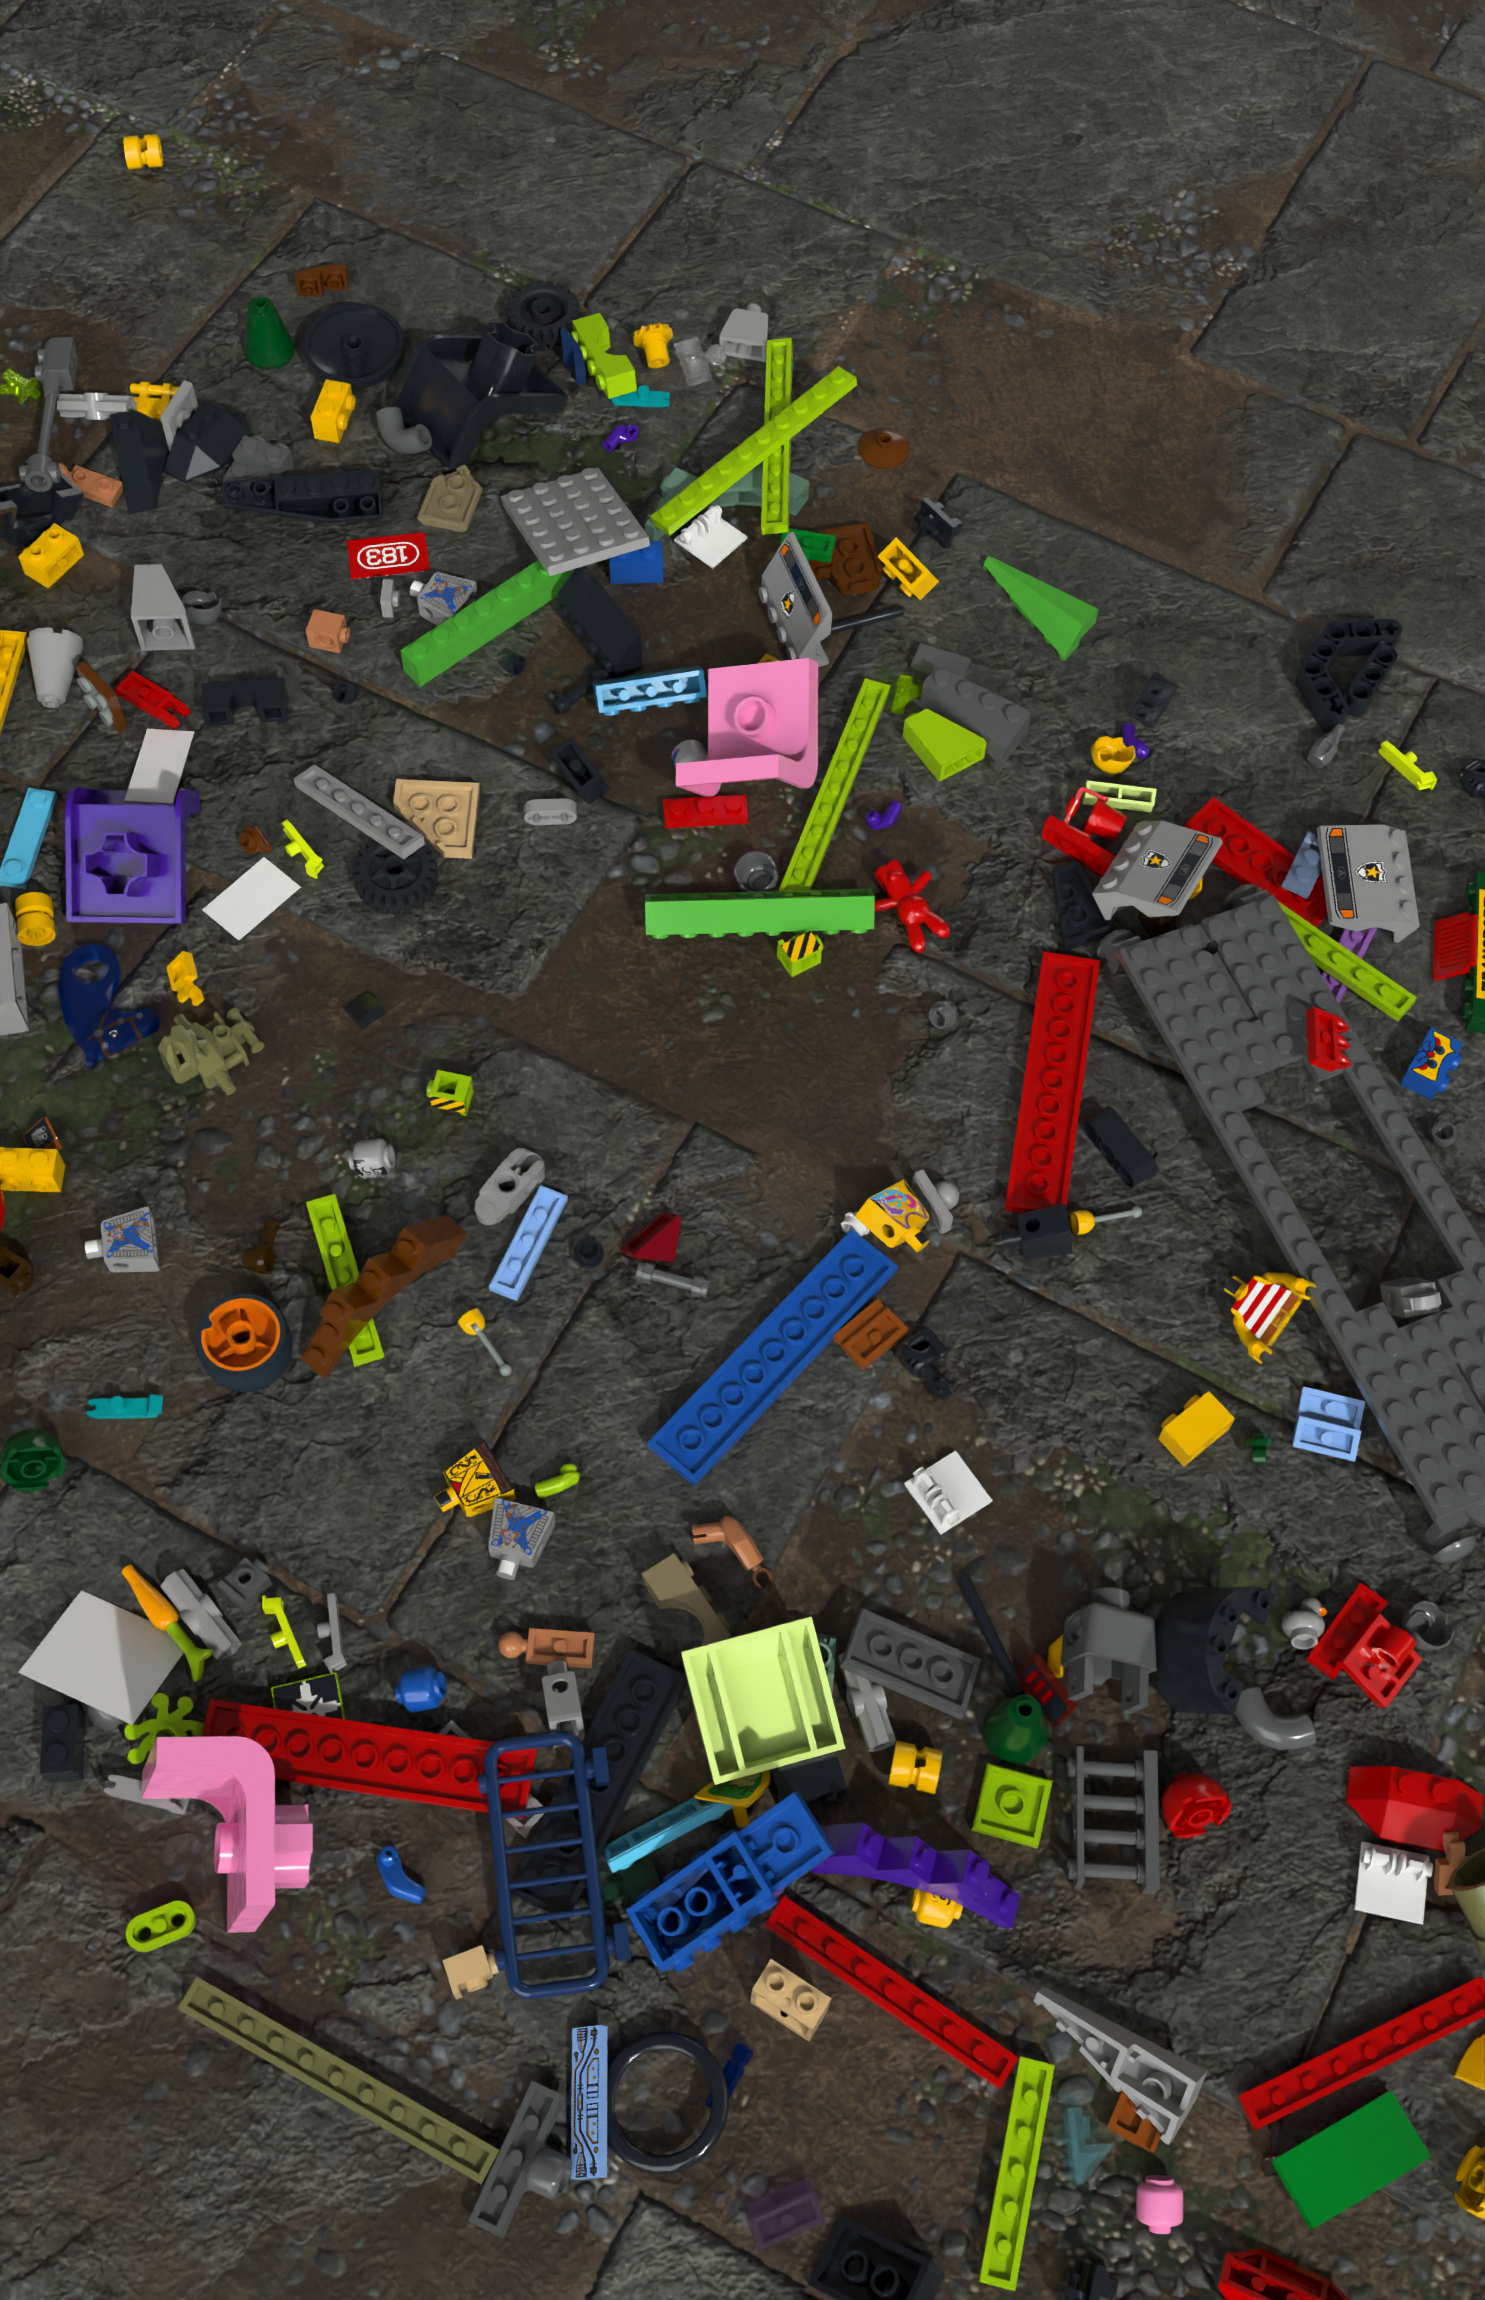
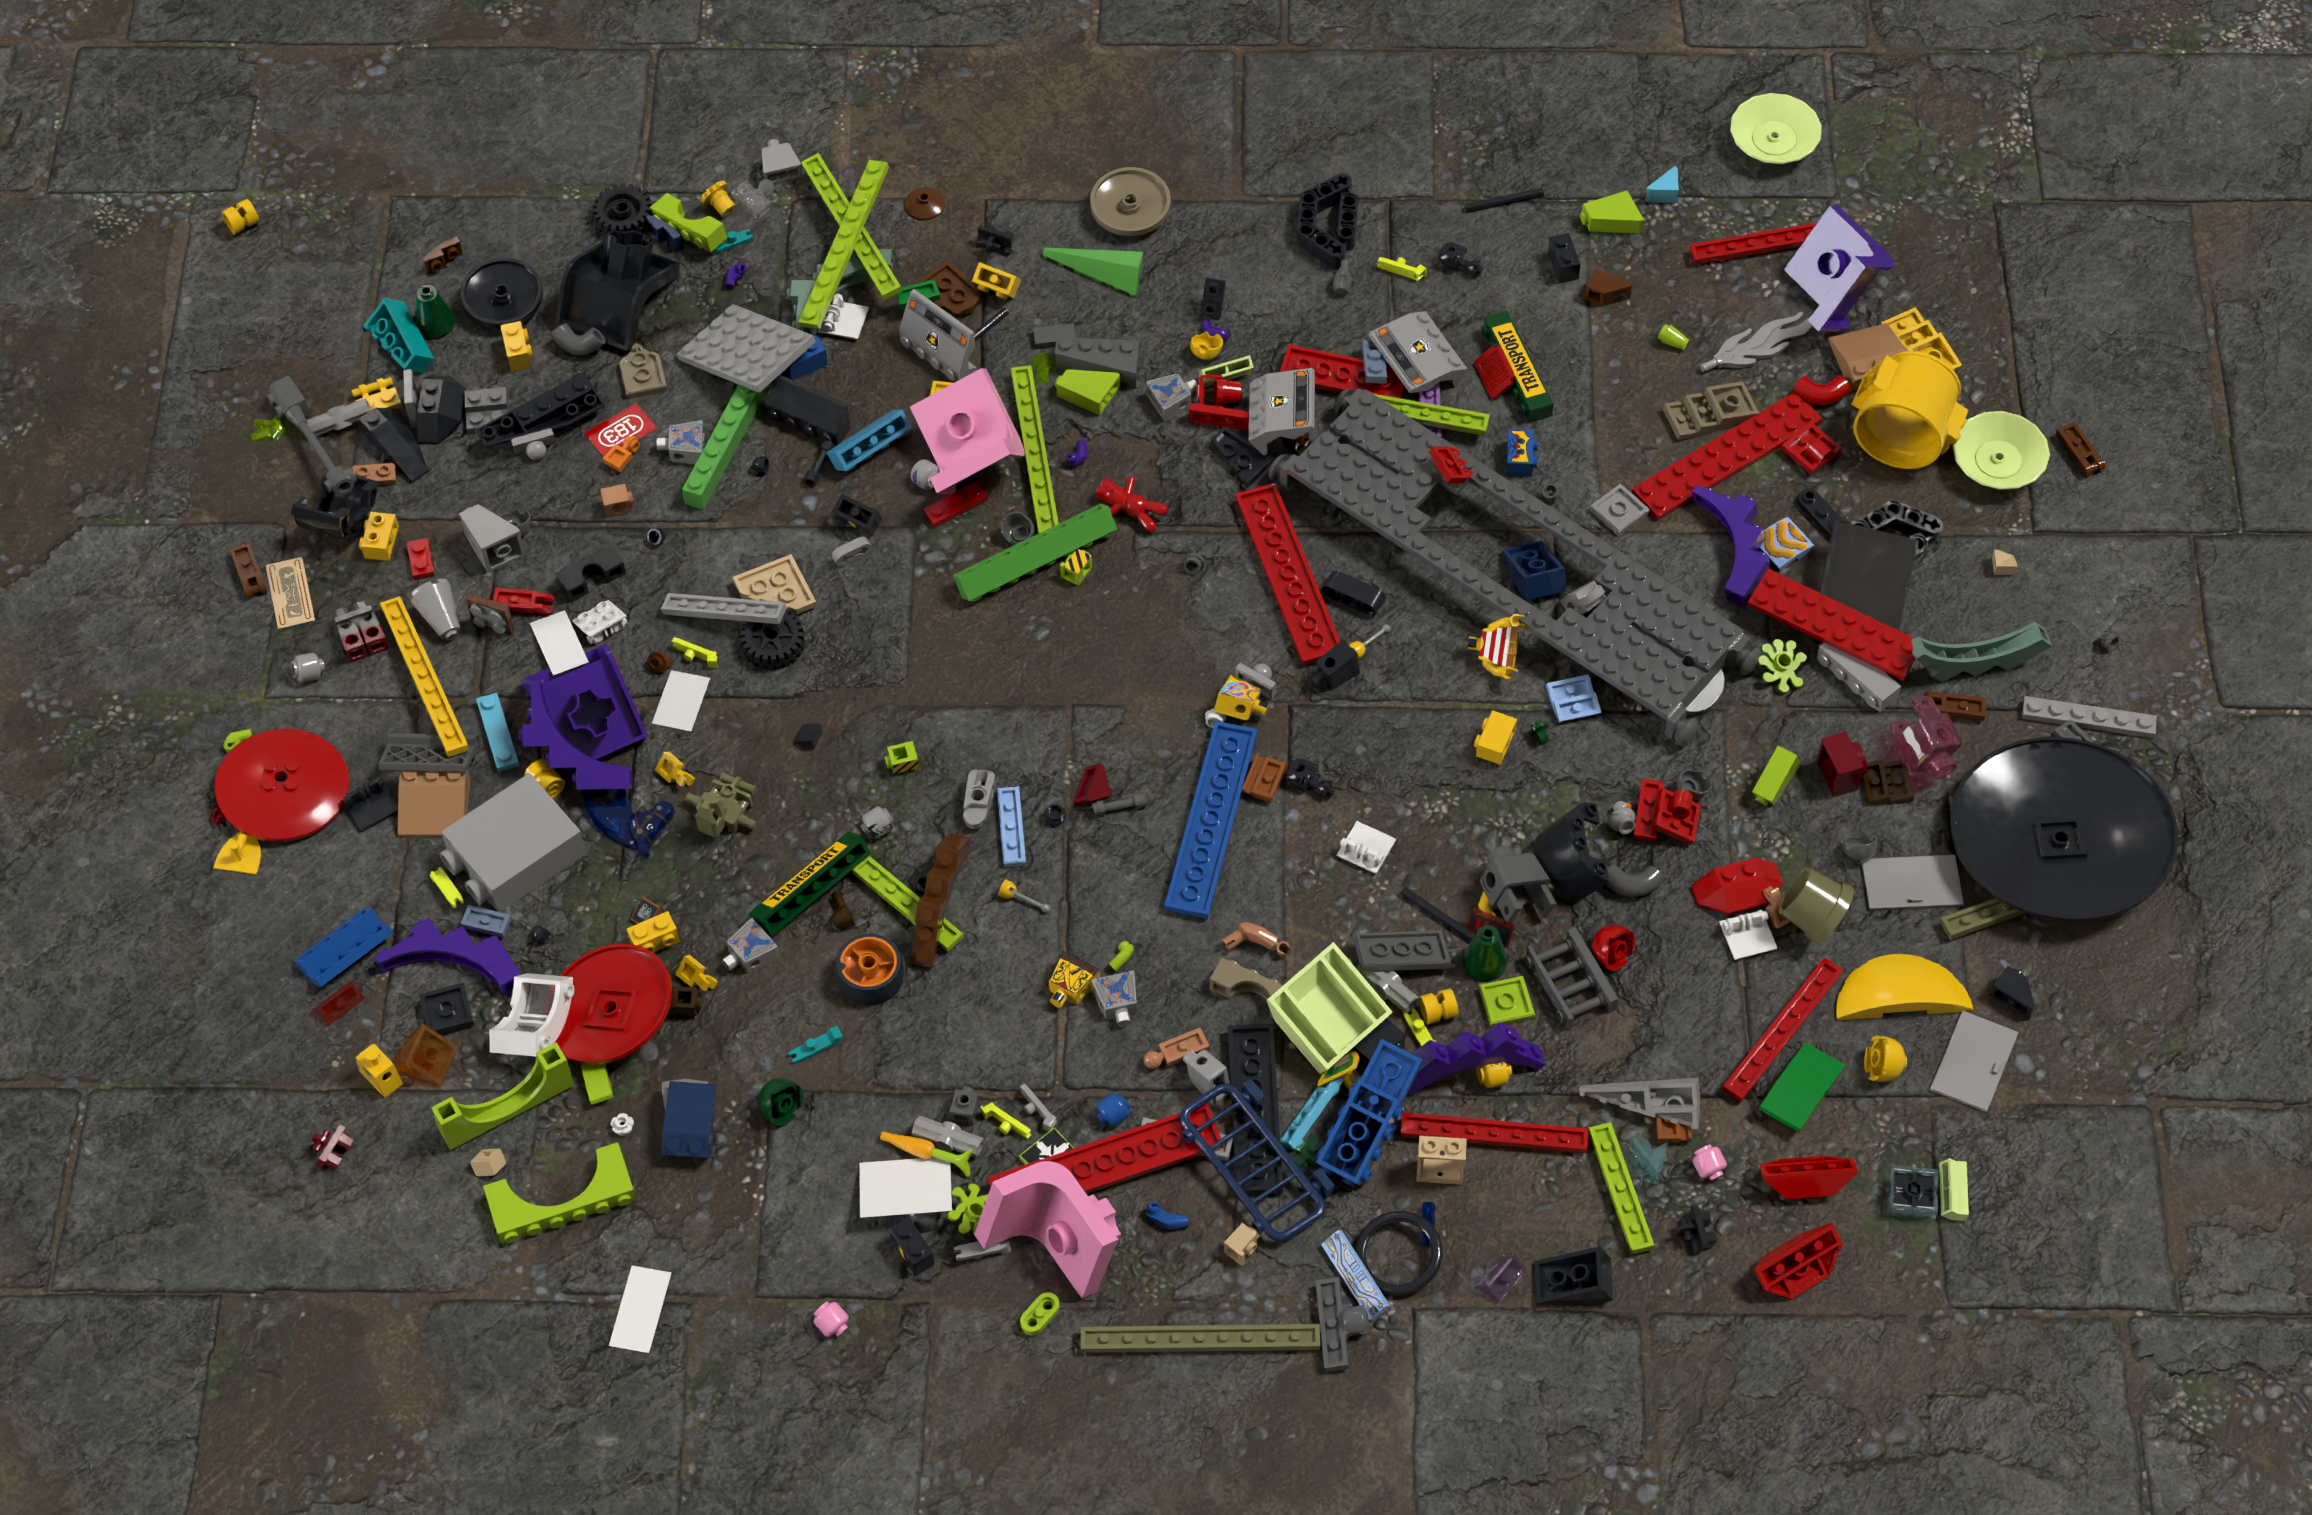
camera: 25 degrees left, 5 degrees down
(42, 1241) = (692, 974): none -> yellow plate
(61, 896) = (543, 731): none -> dark purple arch
(79, 601) = (420, 559): none -> red plate
(220, 346) = (399, 334): none -> teal wedge
(220, 759) = (598, 619): none -> white hinge
(243, 1196) = (810, 883): none -> dark green brick
(281, 527) = (534, 443): none -> light grey tile
(364, 583) = (619, 456): none -> orange plate
(389, 598) = (645, 459): light grey plate -> none
(874, 1789) = (1417, 1027): none -> neon yellow piece
(1035, 795) = (1170, 395): none -> light grey torso
(1119, 545) = (1130, 201): none -> dark tan dish
(1369, 1227) = (1535, 570): none -> dark blue slope

